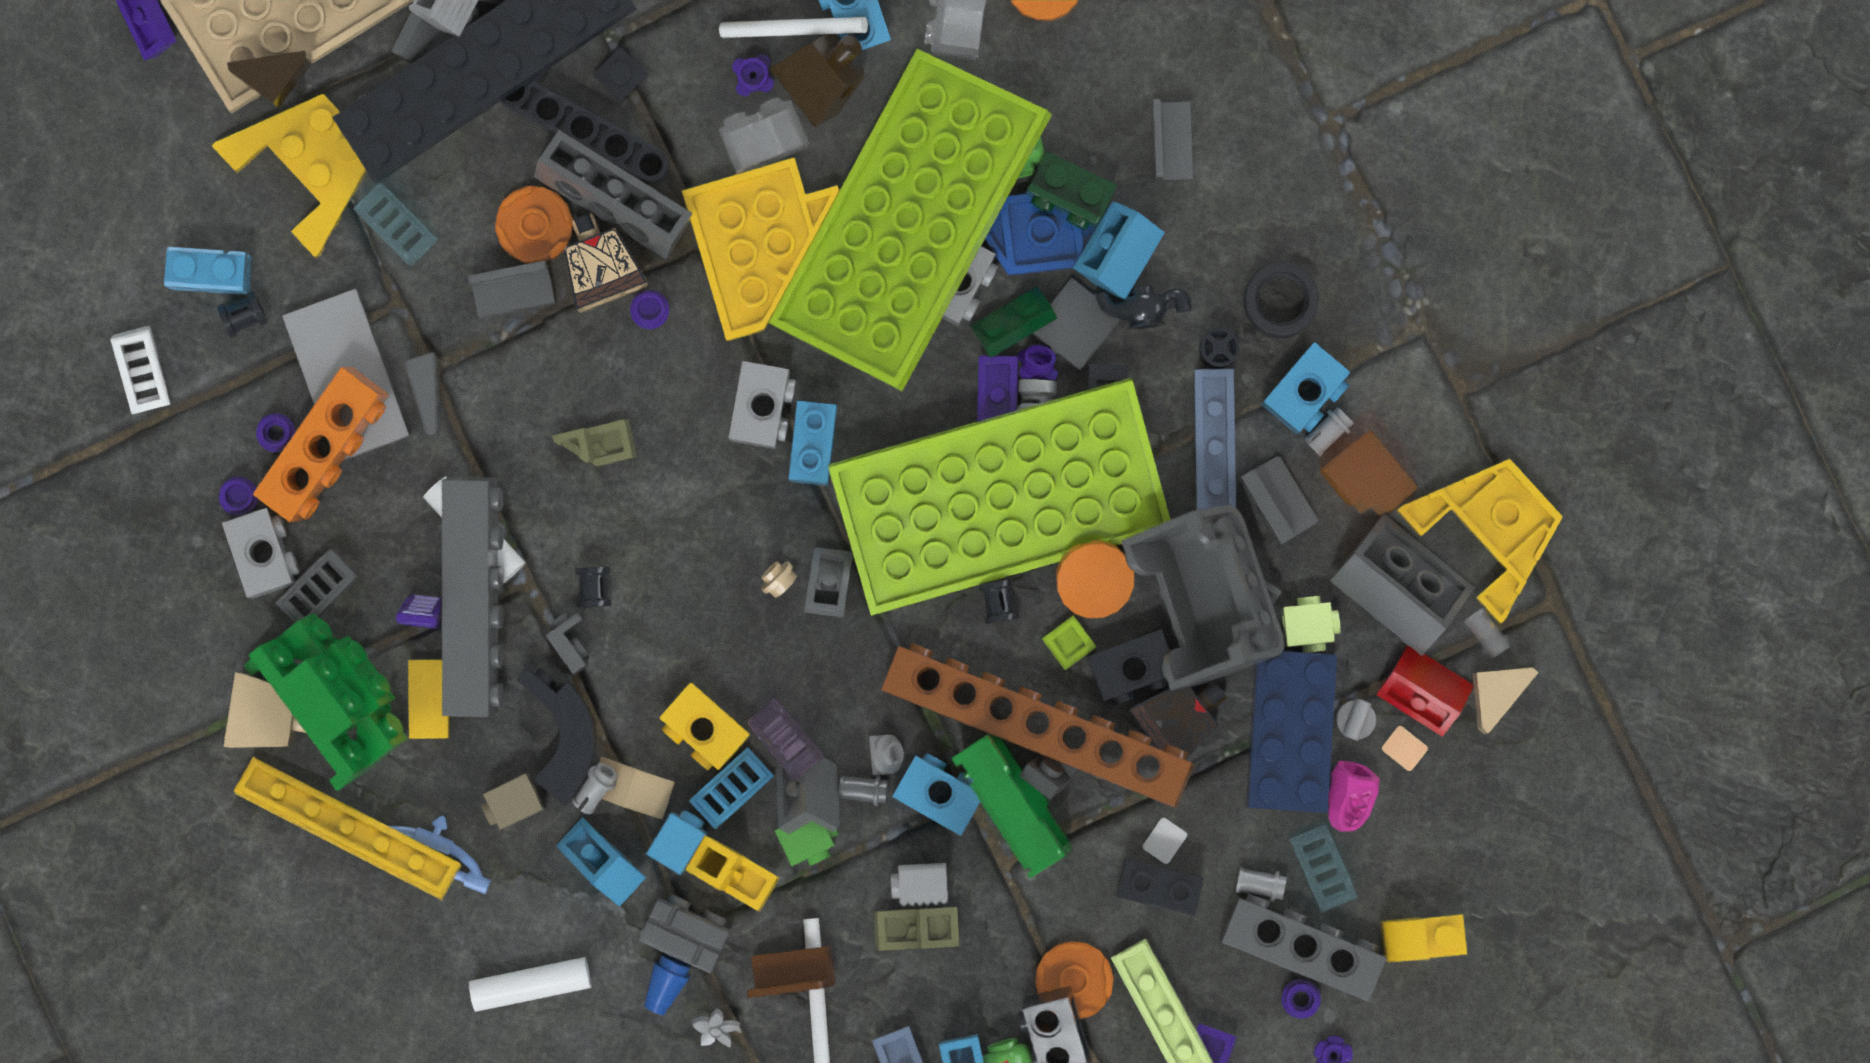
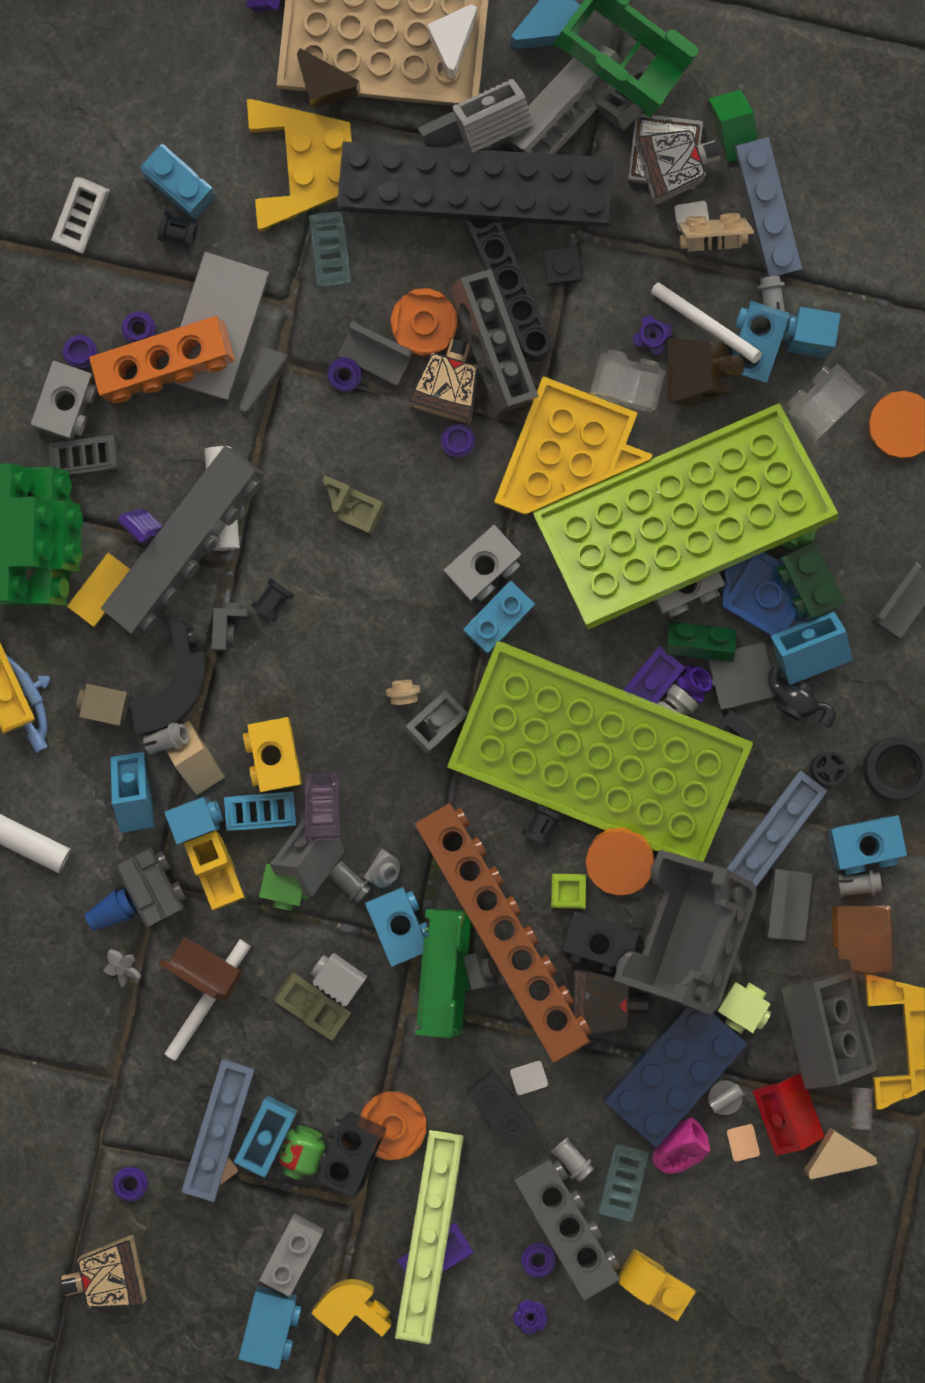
camera: 35 degrees right, 0 degrees up
(498, 340) = (340, 383): none -> dark purple plate

